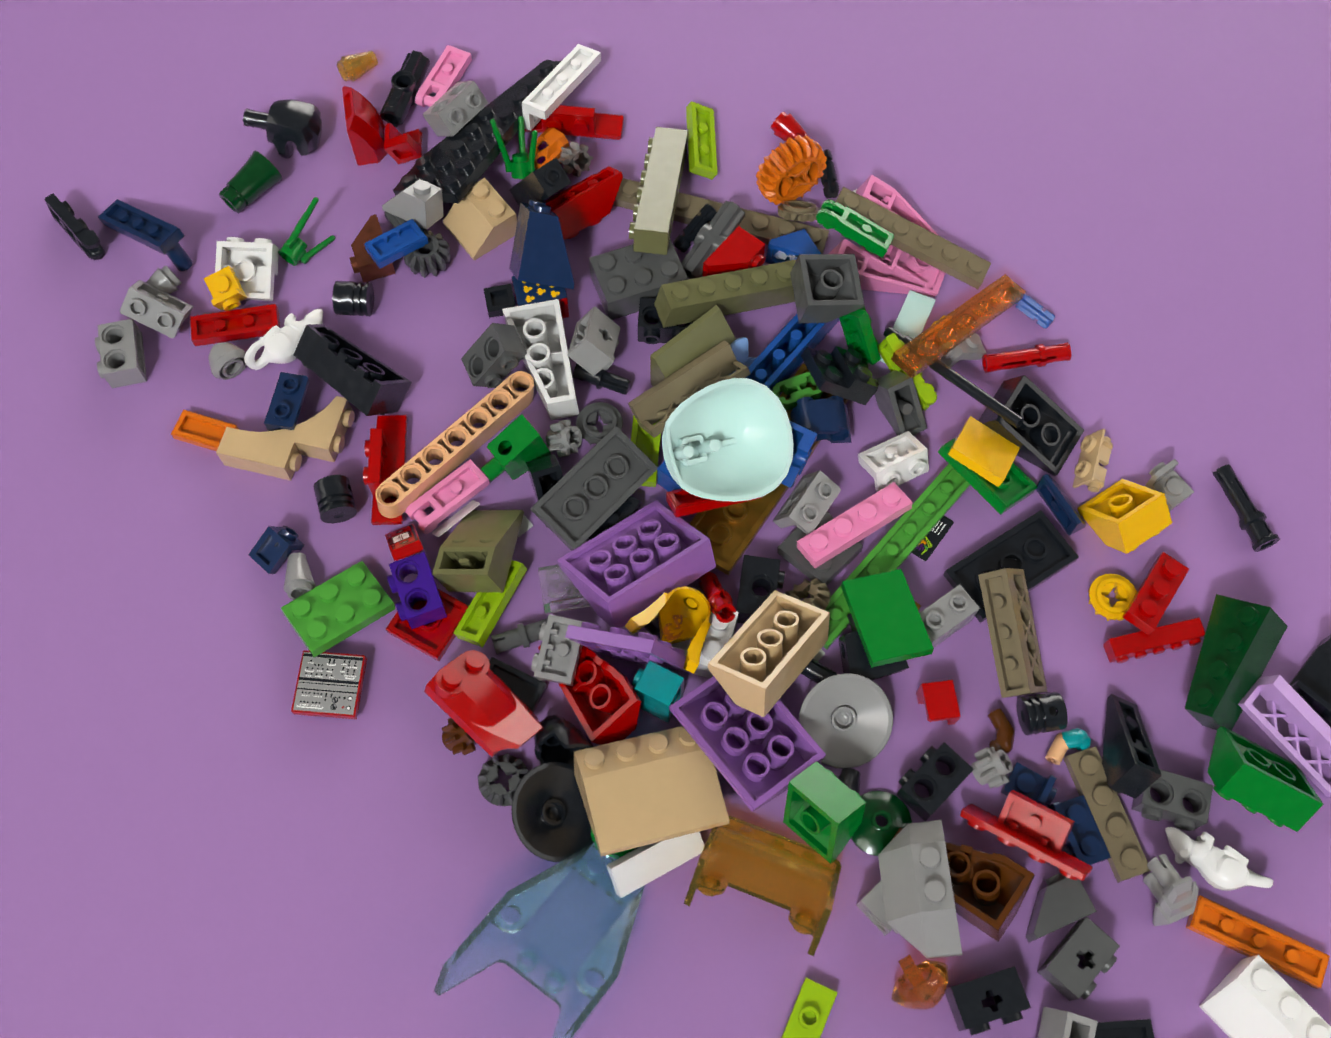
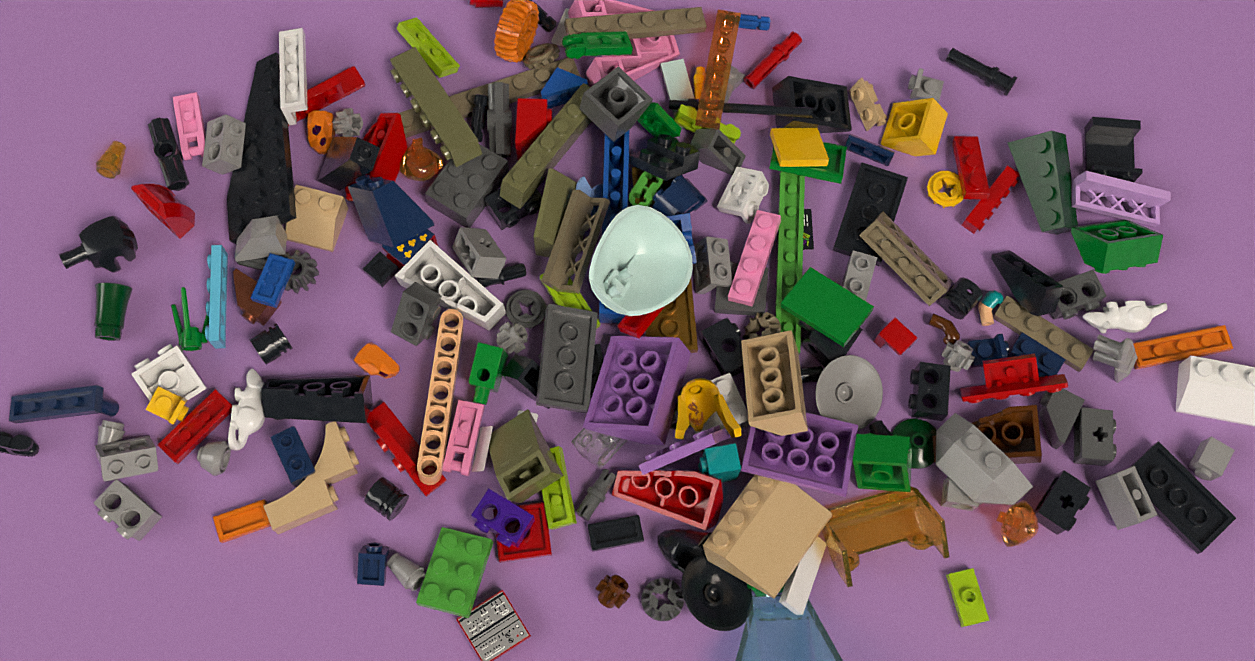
camera: 40 degrees left, 5 degrees up
(343, 231) = (217, 306): none -> medium azure plate
(402, 146) = (205, 199): red panel -> none
(404, 542) = (464, 492): red tile -> none
(427, 375) = (376, 361): none -> orange rock
(482, 703) = (615, 560): red slope -> none
(521, 164) = (310, 155): green plant -> none
(557, 654) = (637, 489): light grey bracket -> none
(609, 230) = (420, 162): none -> clear orange piece
(719, 599) = (714, 373): red pin -> none

